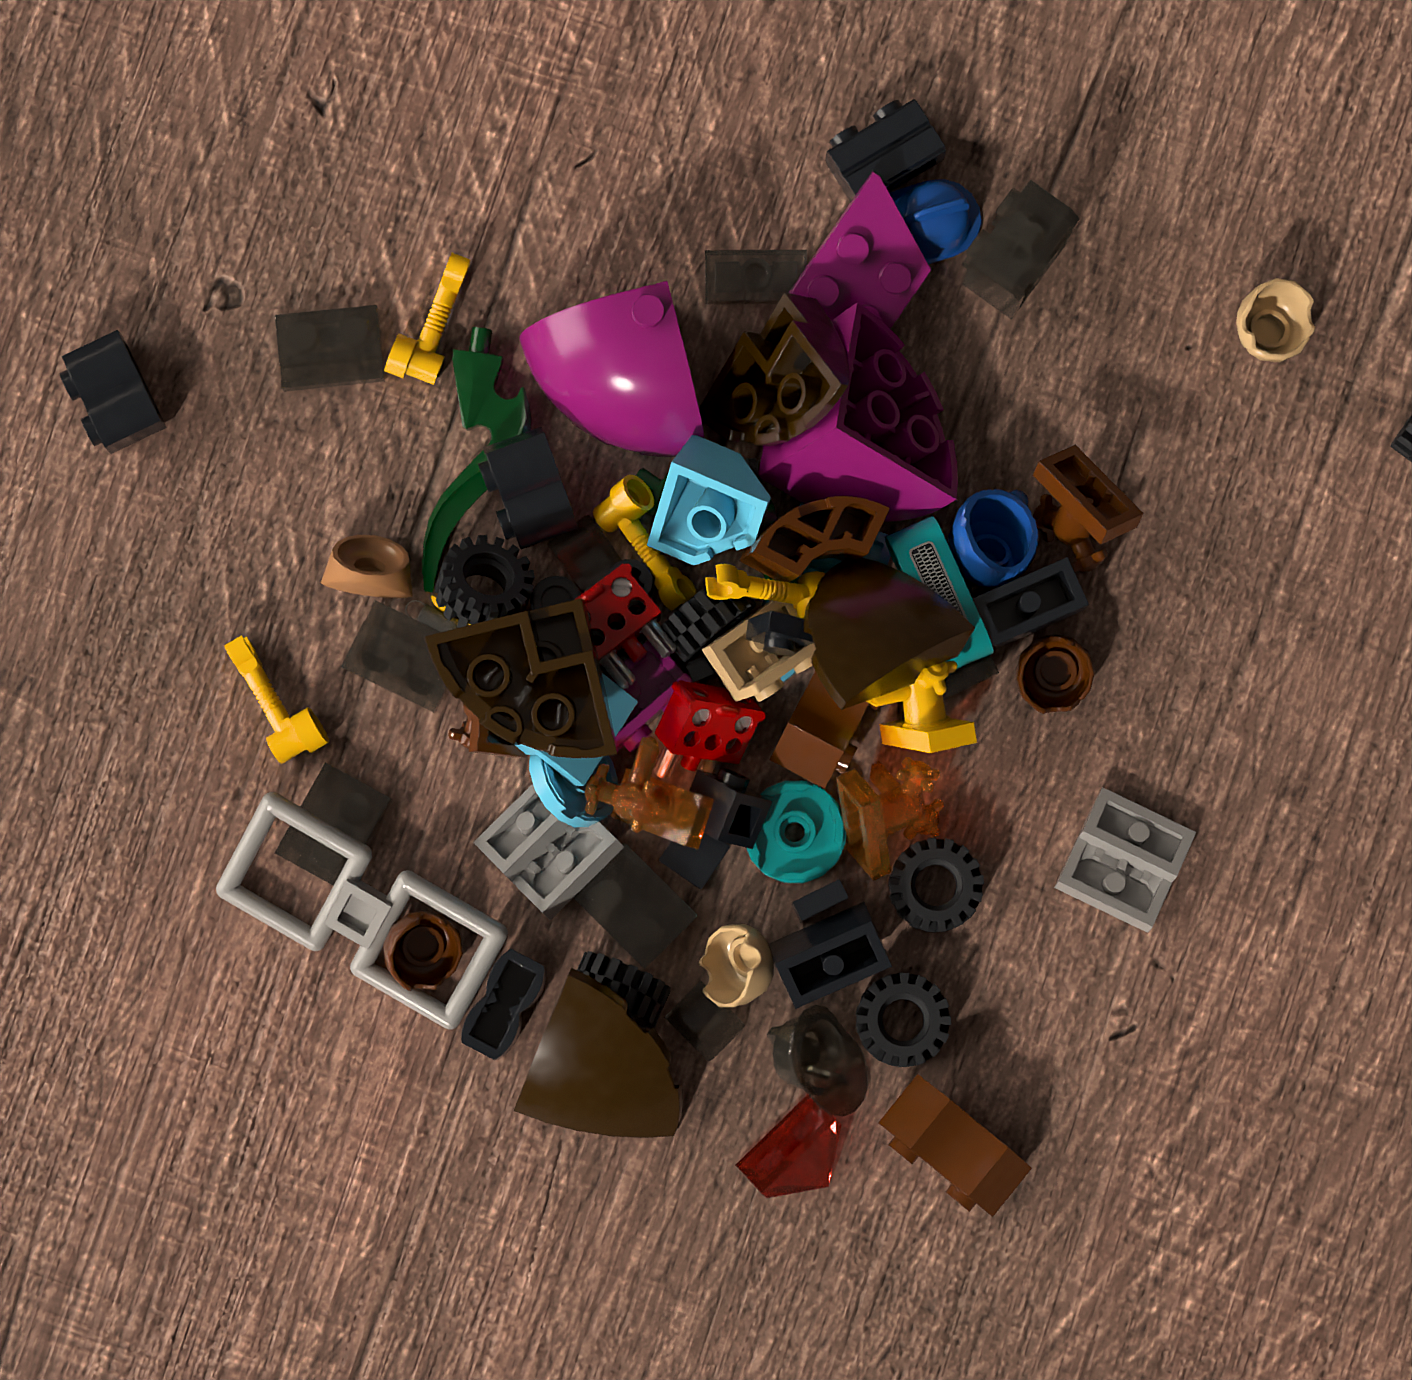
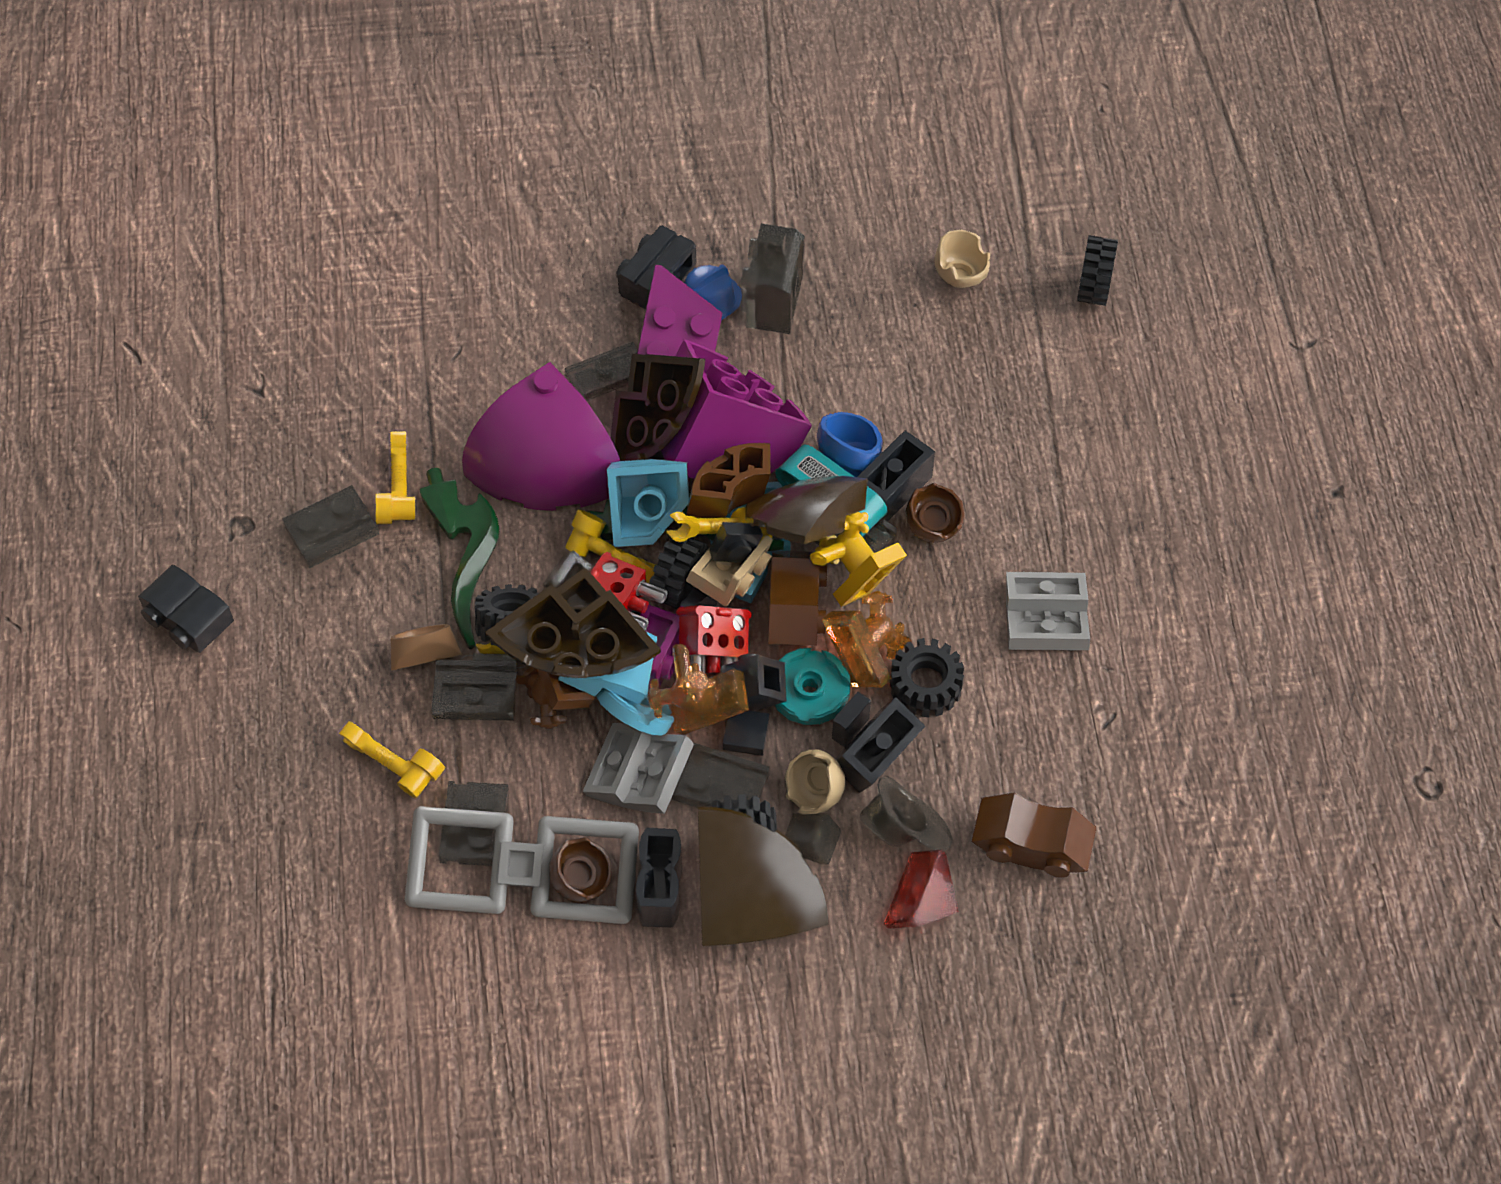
camera: 25 degrees left, 25 degrees down
(529, 488) = (513, 545): black brick -> none
(935, 1020) = (951, 793): black tyre -> none
(1088, 506) = (902, 401): reddish brown piece -> none

